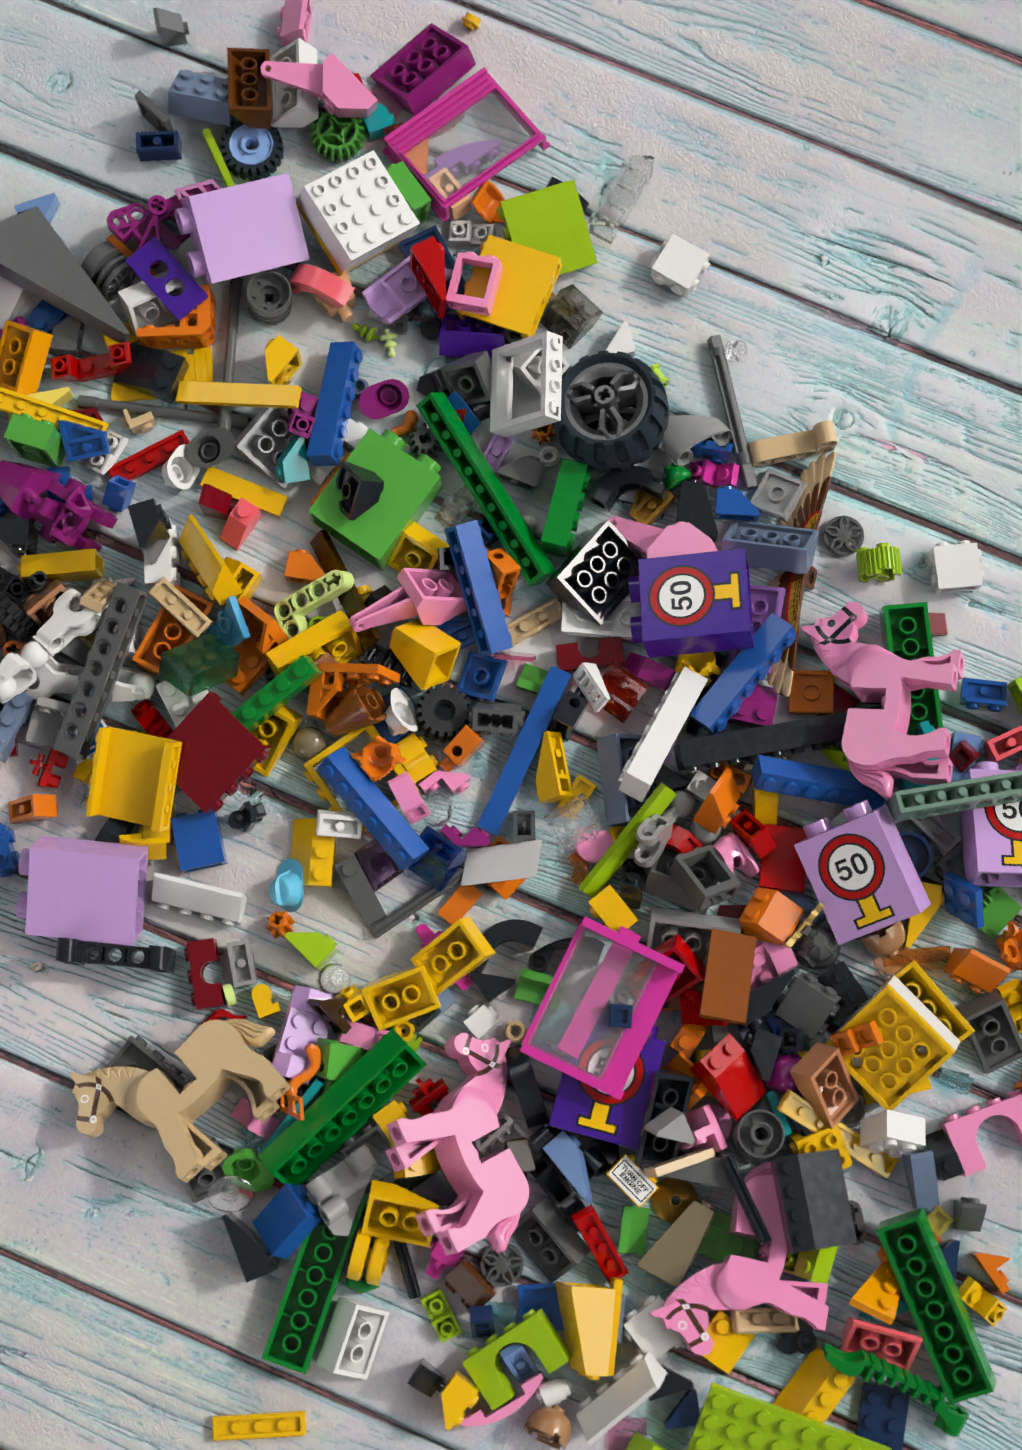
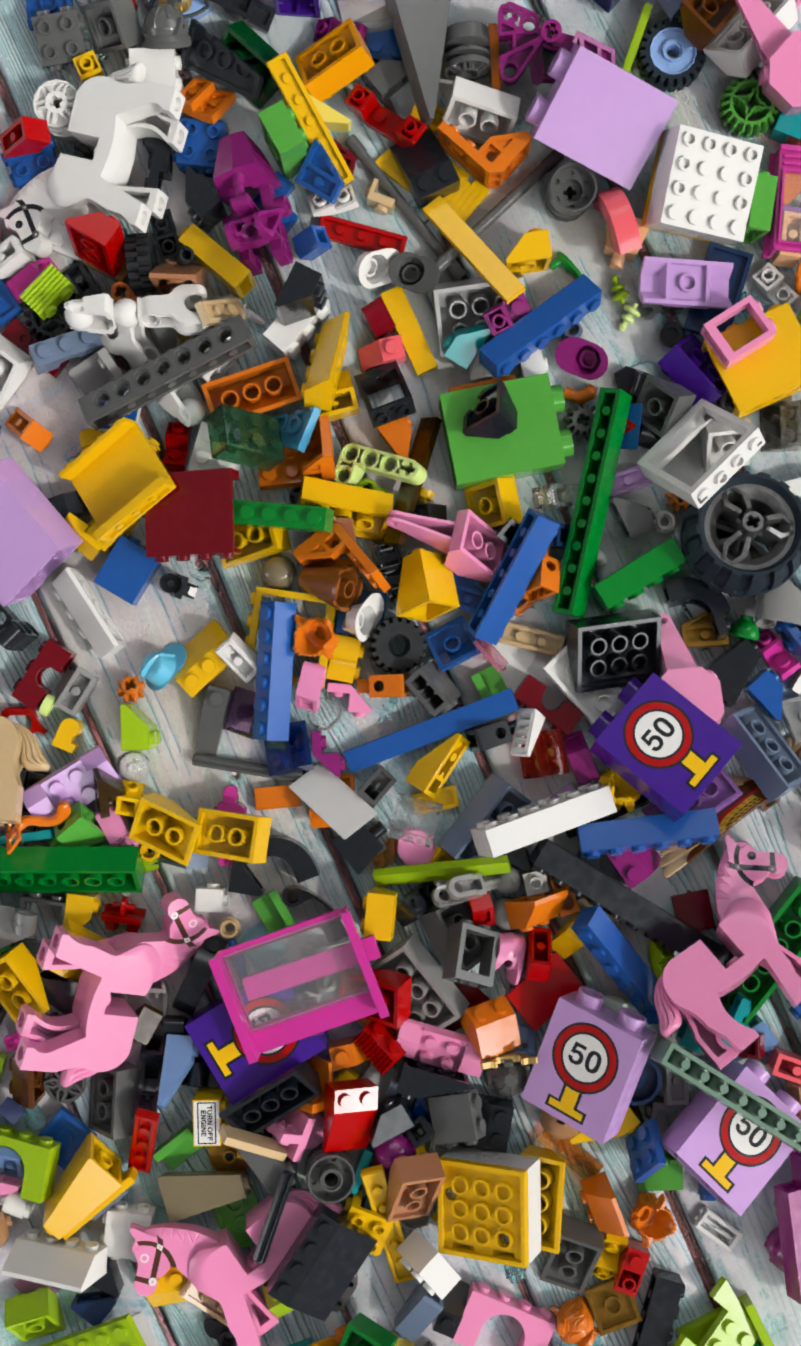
camera: 45 degrees right, 10 degrees up
(46, 778) = (60, 415): red hips -> none
(178, 305) = (515, 70): dark purple piece -> none
(180, 607) = (272, 378): tan tile -> none
(261, 532) = (389, 376): none -> black window
(311, 346) = (562, 259): none -> green bar
(429, 269) = (714, 286): red slope -> none
(552, 879) = (361, 846): none -> black torso
(620, 1015) = (308, 1002): dark blue tile -> none
(671, 1125) = (267, 1116): light grey slope -> none
(728, 977) = (416, 1045): dark orange tile -> none
(812, 692) = (686, 889): orange tile -> none
(857, 1038) = (463, 1180): orange slope -> none

